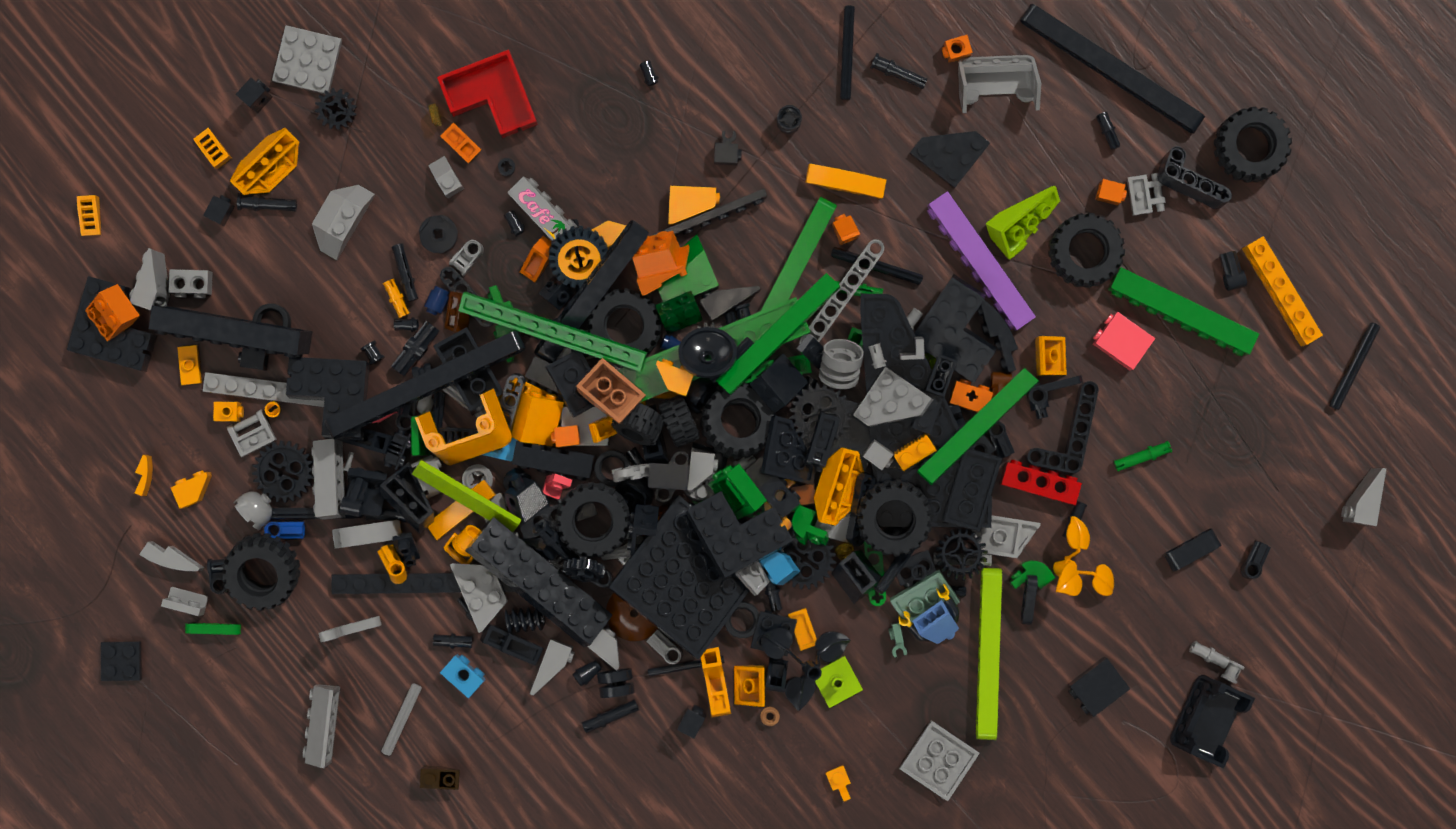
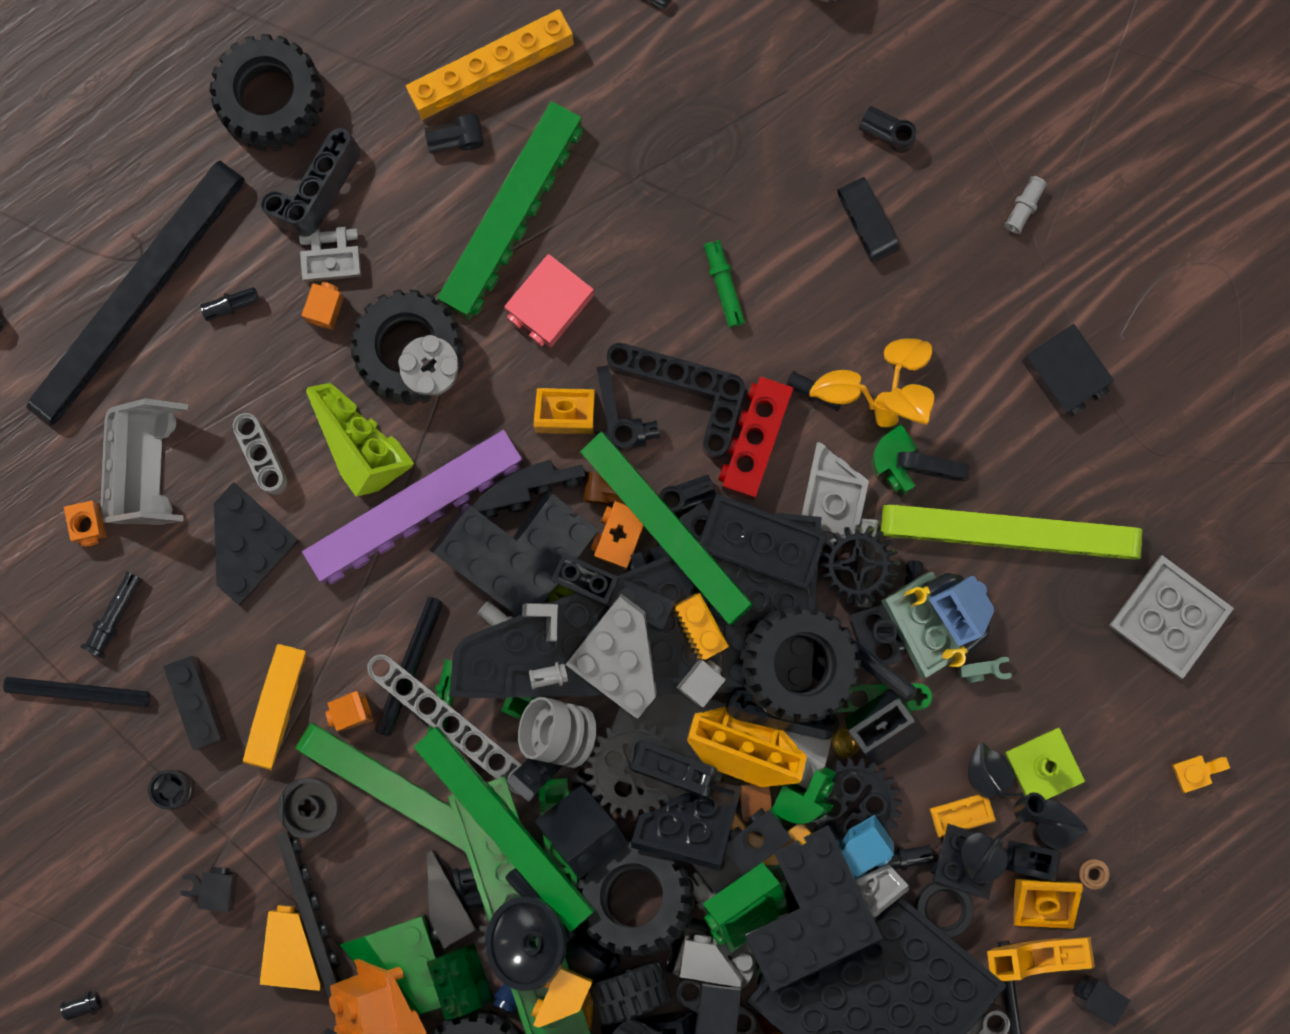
camera: 85 degrees left, 5 degrees down
(789, 200) = (297, 820): none -> black brick
(845, 129) = (195, 703): none -> black brick
(1016, 152) = (250, 444): none -> light grey beam
(1075, 253) = (426, 382): none -> light grey plate
(1208, 719) = (1123, 213): black windscreen -> none
(1232, 671) = (1053, 172): light grey bush -> none

